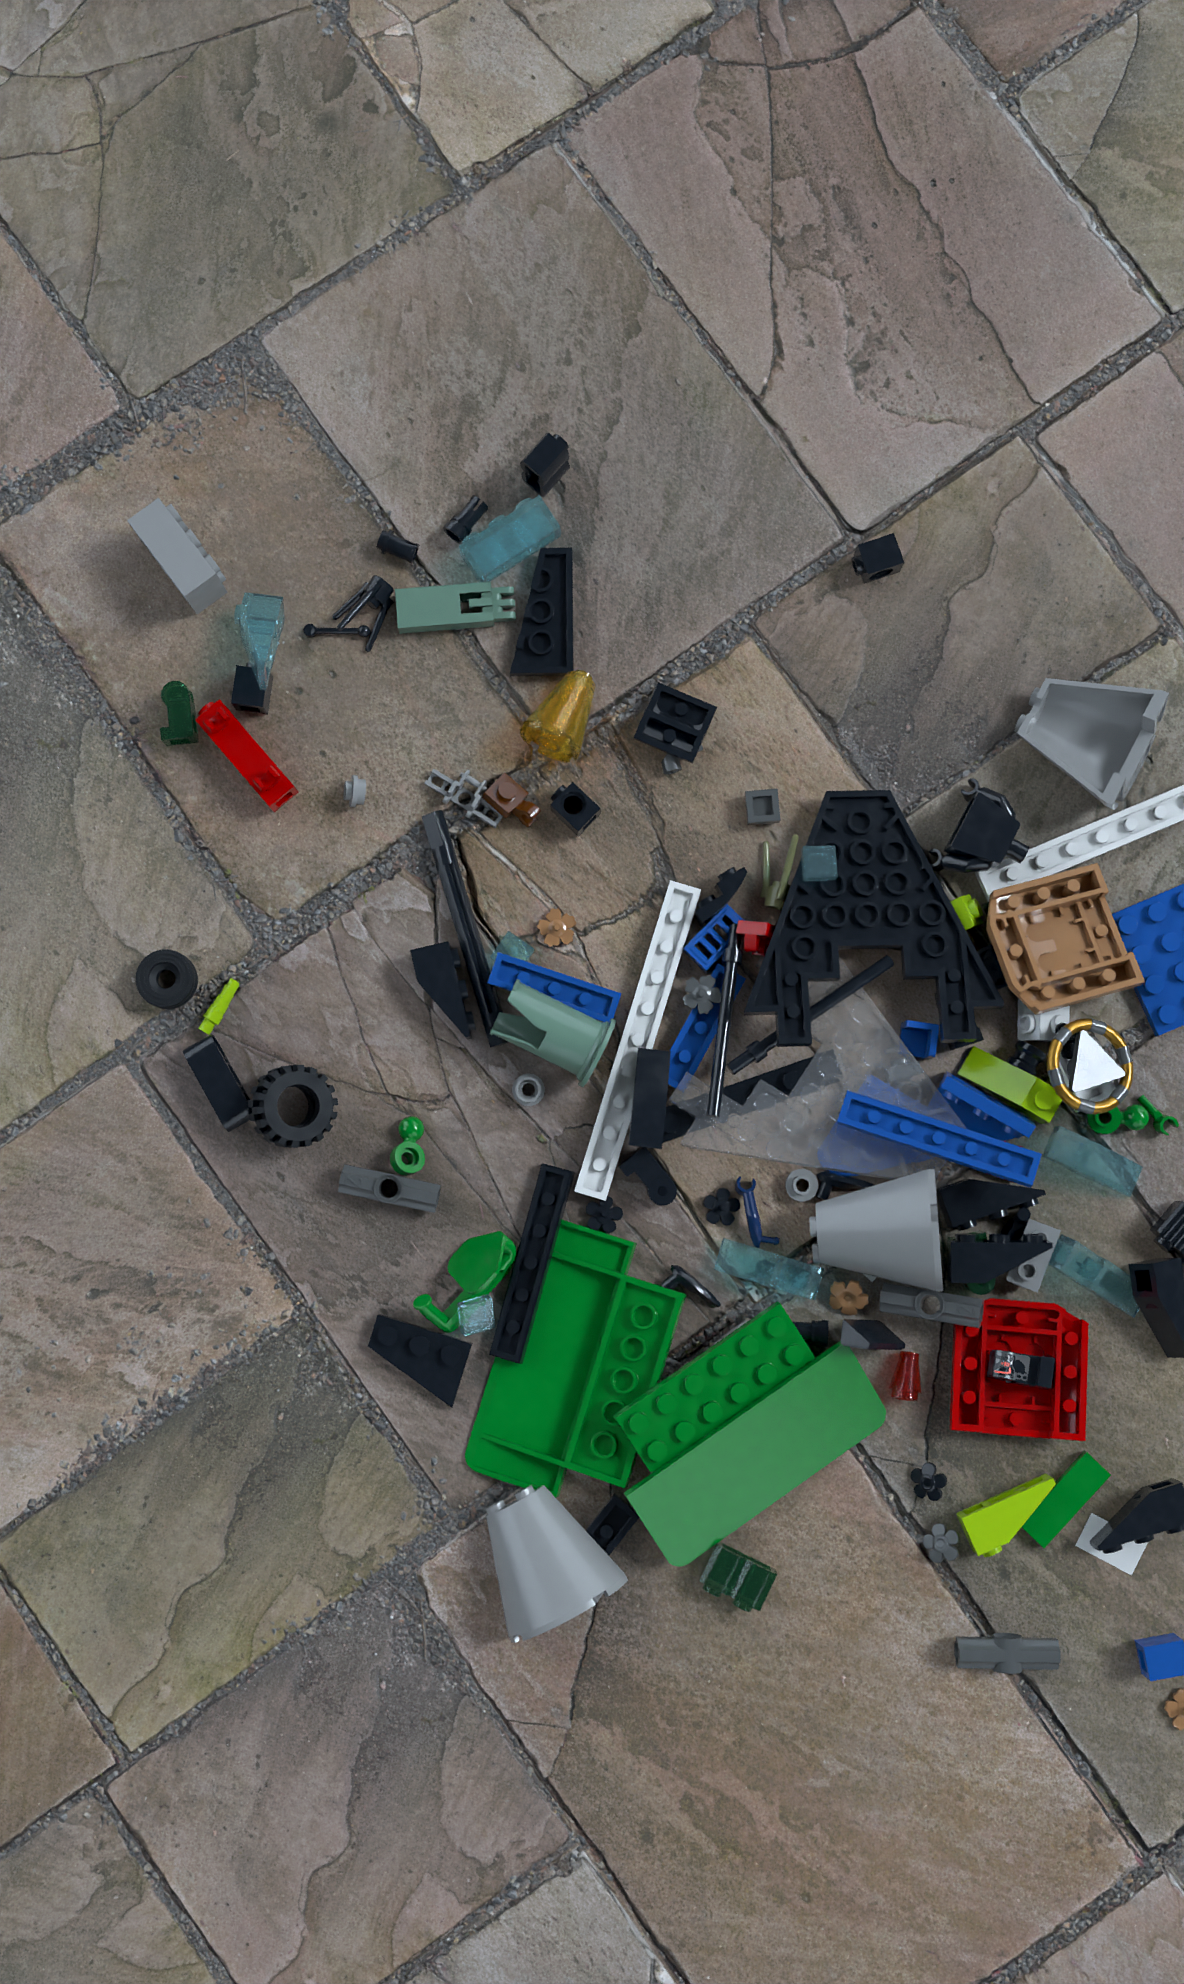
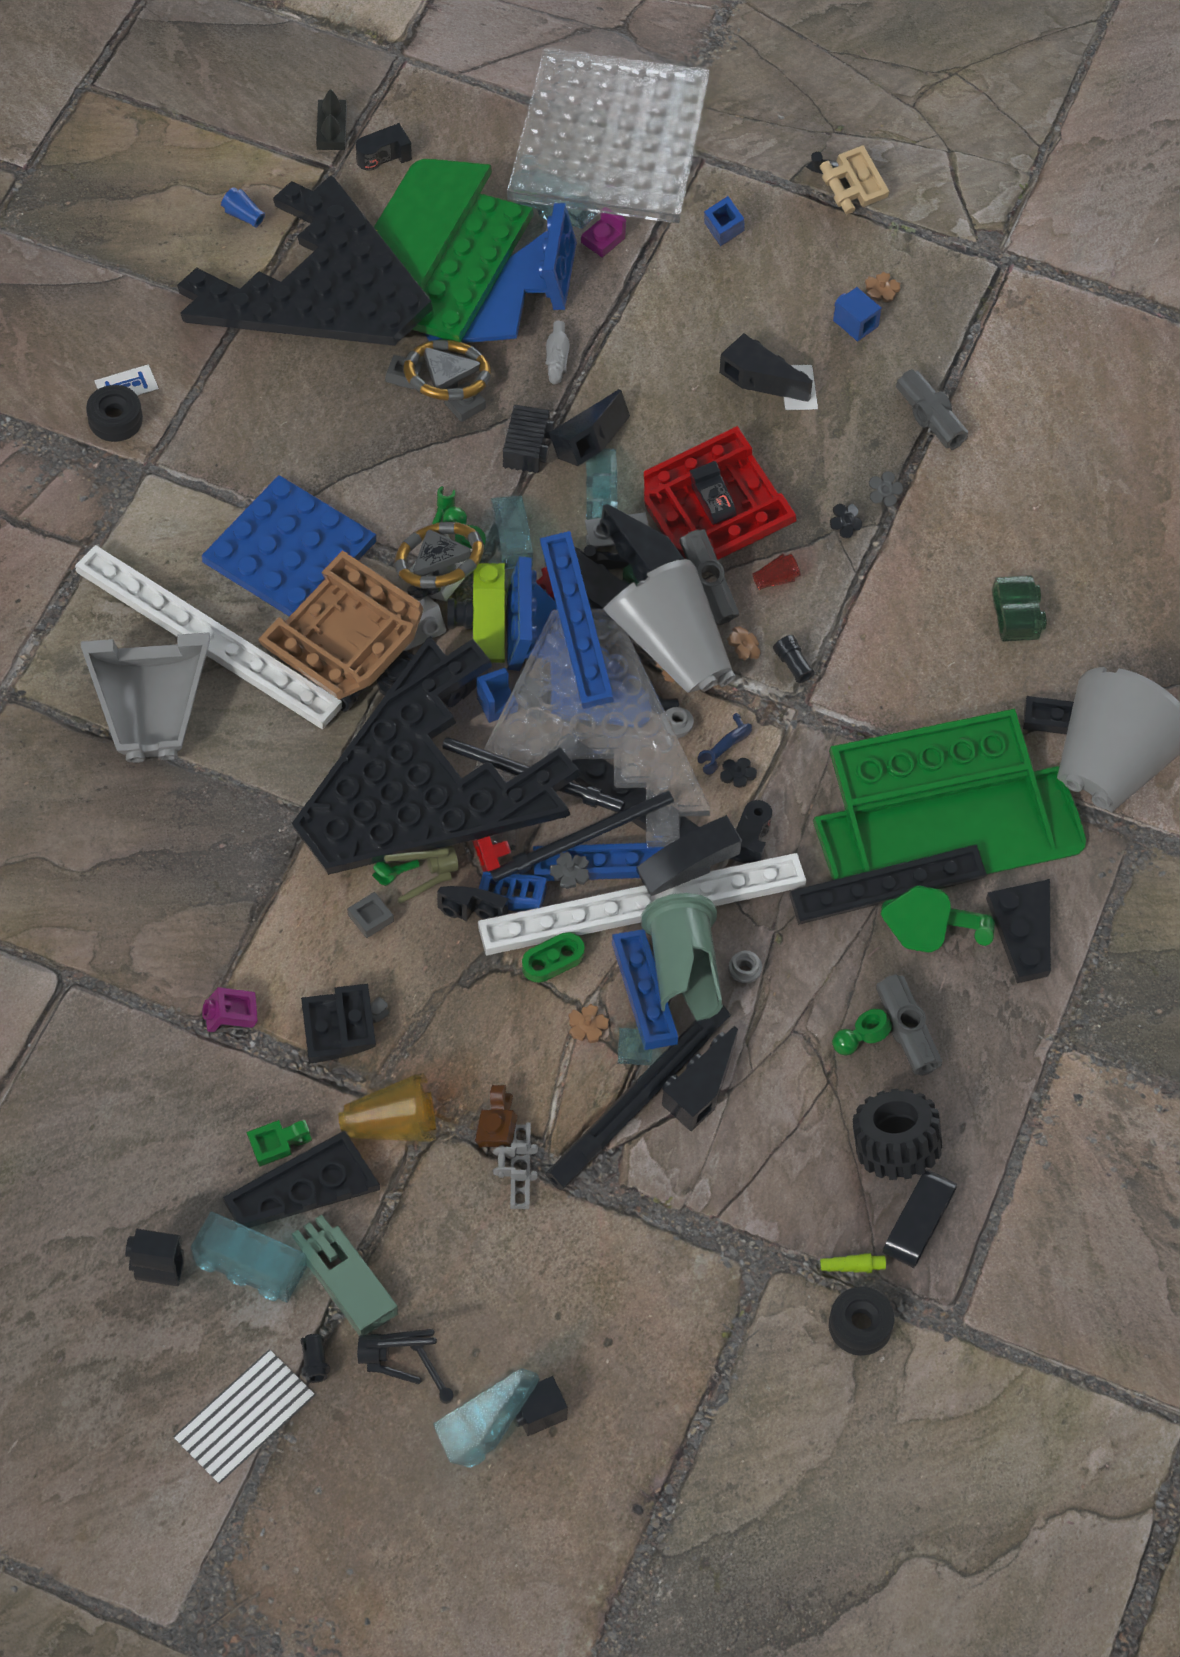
camera: 125 degrees left, 25 degrees down
(179, 554) = (452, 1544): light grey brick -> none
(180, 713) = (606, 1459): clear green leg -> none
(246, 754) = (606, 1374): red brick -> none
(355, 791) = (577, 1257): light grey plate -> none
(388, 475) = (244, 1416): none -> white sticker
(461, 525) = (259, 1311): black pin -> none
(476, 1315) = (964, 899): clear light blue tile -> none
(576, 822) = (471, 1048): black brick -> none
(599, 615) = (273, 1142): none -> green plate
(603, 1215) = (810, 854): black plant -> none
(632, 934) = (551, 958): none -> green plate
(681, 1276) = (816, 770): black bar -> none
(739, 645) = (230, 1008): none -> magenta bracket
(742, 1431) = (904, 657): green slope -> none
(769, 1269) = (763, 707): clear light blue slope -> none
(801, 842) = (385, 874): none -> green hand
(819, 863) = (397, 831): clear light blue tile -> none
(869, 1335) = (765, 602): black slope -> none
(877, 558) = (79, 938): black brick -> none
(968, 911) = (361, 712): lime plate -> none
(982, 834) = (288, 727): black torso -> none
(1001, 1516) = (832, 458): lime slope -> none
(1066, 1498) = (789, 429): green tile -> none

